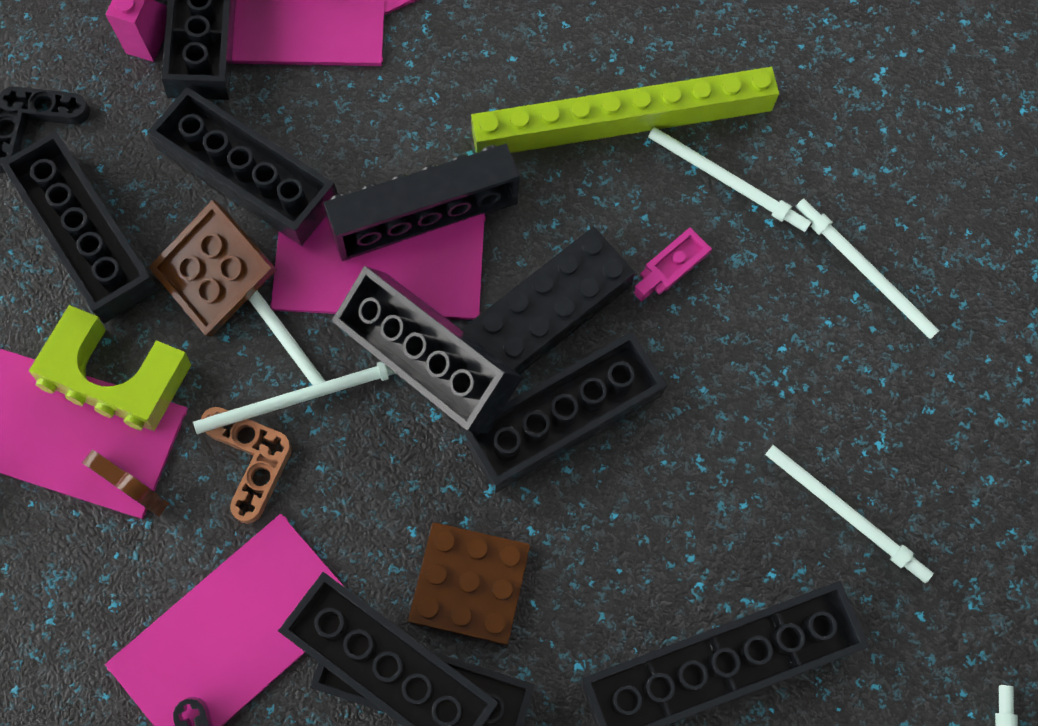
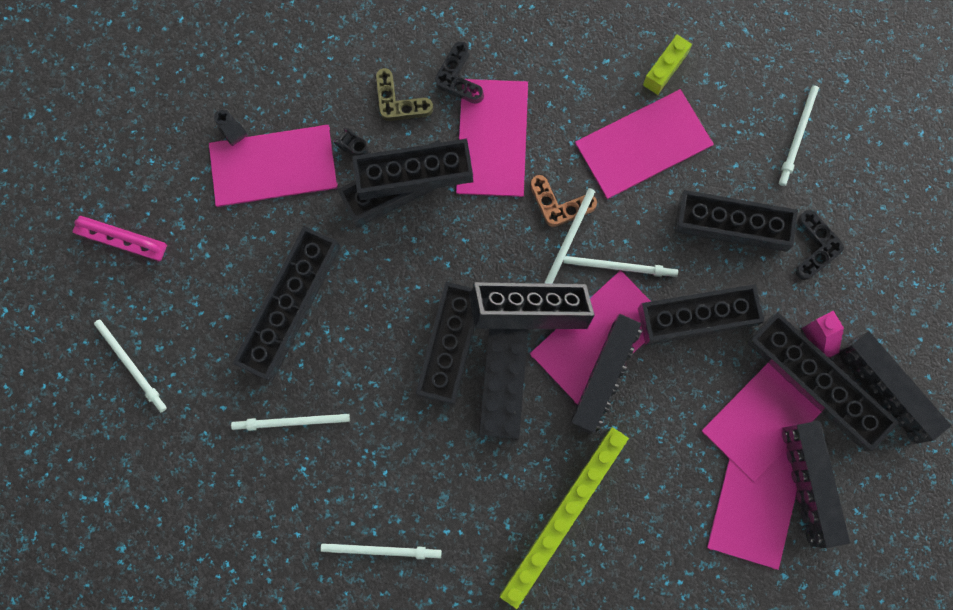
camera: 140 degrees right, 5 degrees up
(126, 483) = (580, 143): reddish brown beam -> none
(138, 401) = (670, 161): lime arch -> none
(212, 268) = (661, 258): reddish brown plate -> none
(469, 583) = (420, 241): reddish brown plate -> none
(672, 264) = (469, 462): dark pink hinge -> none
(780, 210) = (446, 540): light aqua bar -> none

